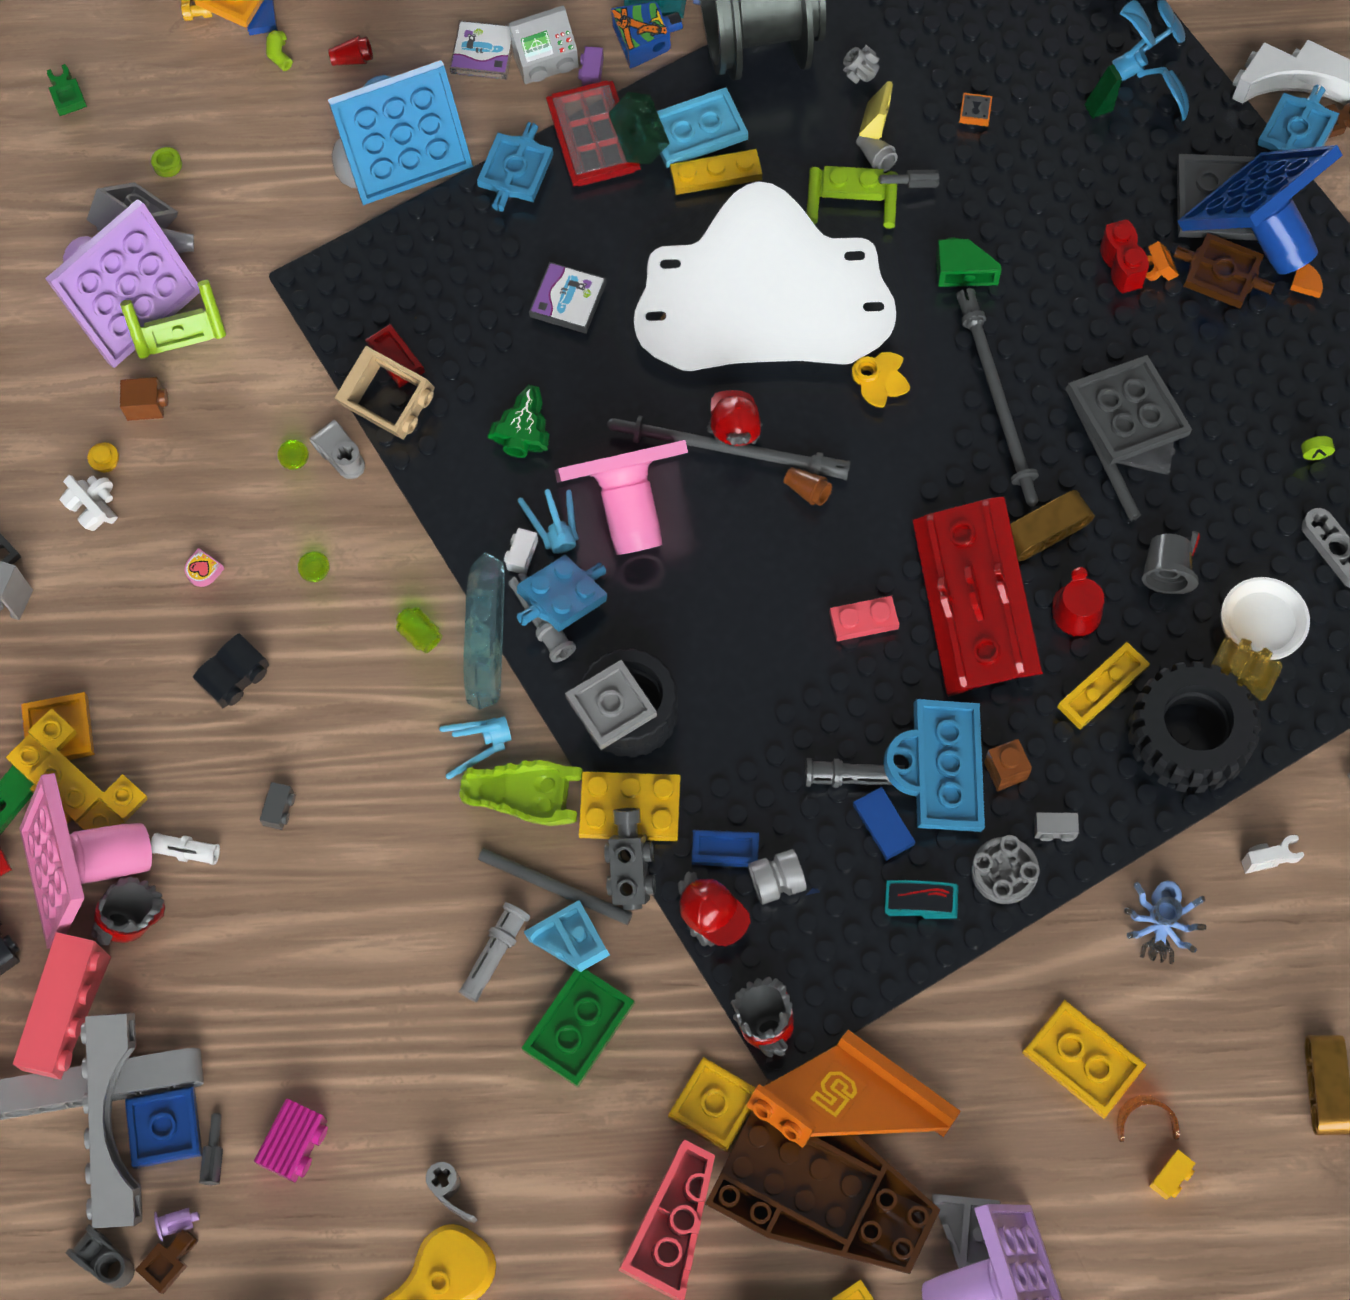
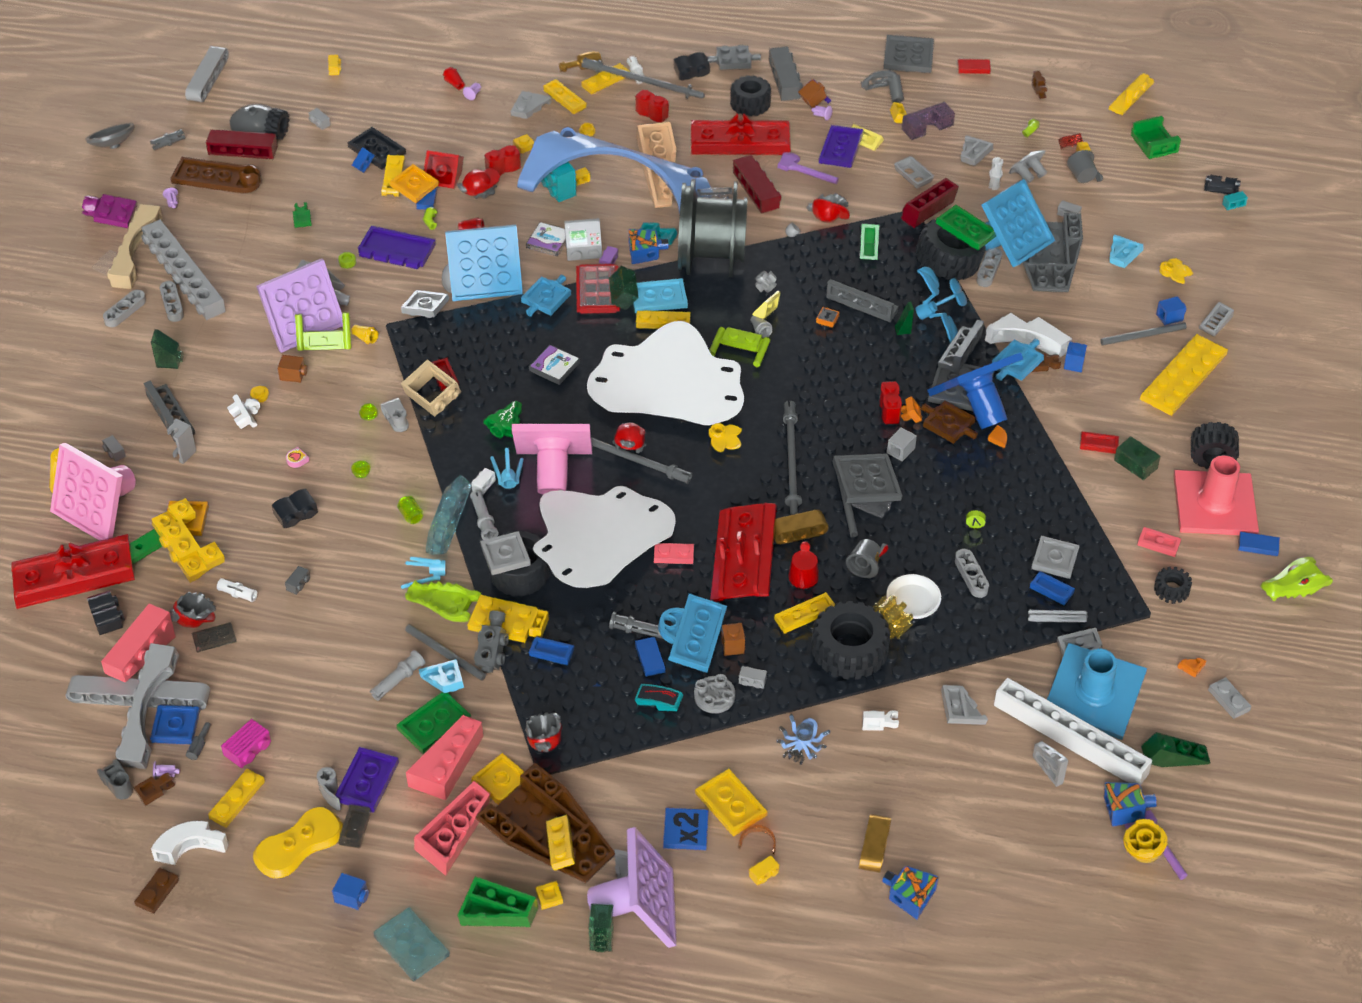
camera: 10 degrees right, 20 degrees down
(65, 860) = (177, 574): bright pink piece -> none
(174, 946) = (214, 637): none -> clear smoke plate
(240, 118) = (396, 246): none -> dark purple hinge
(241, 302) = (366, 334): none -> yellow cone
(305, 1242) = (236, 798): none -> yellow plate
(322, 224) = (425, 303): none -> light grey plate
(504, 1160) = (367, 778): none -> dark purple plate
(512, 1252) = (354, 826): none -> clear smoke plate
(561, 593) = (498, 503): dark azure plate -> none
(619, 1101) = (445, 761): none -> coral wedge
(692, 805) = (538, 623): none -> yellow piece
(711, 911) = (531, 676): red hair -> none
(741, 617) = (599, 533): none -> white piece
(777, 876) = (576, 666): light grey wheel -> none
(810, 486) = (664, 481): dark orange cone -> none
(850, 1093) = (582, 781): orange piece -> none
(853, 1219) = (560, 842): none -> yellow plate
(913, 179) = (777, 343): dark grey axle -> none
(965, 264) = (793, 388): green slope -> none
(1021, 67) = (861, 300): none -> dark grey fence
(1029, 1126) = (685, 829): none -> blue tile
(1163, 331) = (901, 444): none -> light grey brick
(1215, 123) = (963, 350): none -> dark grey fence

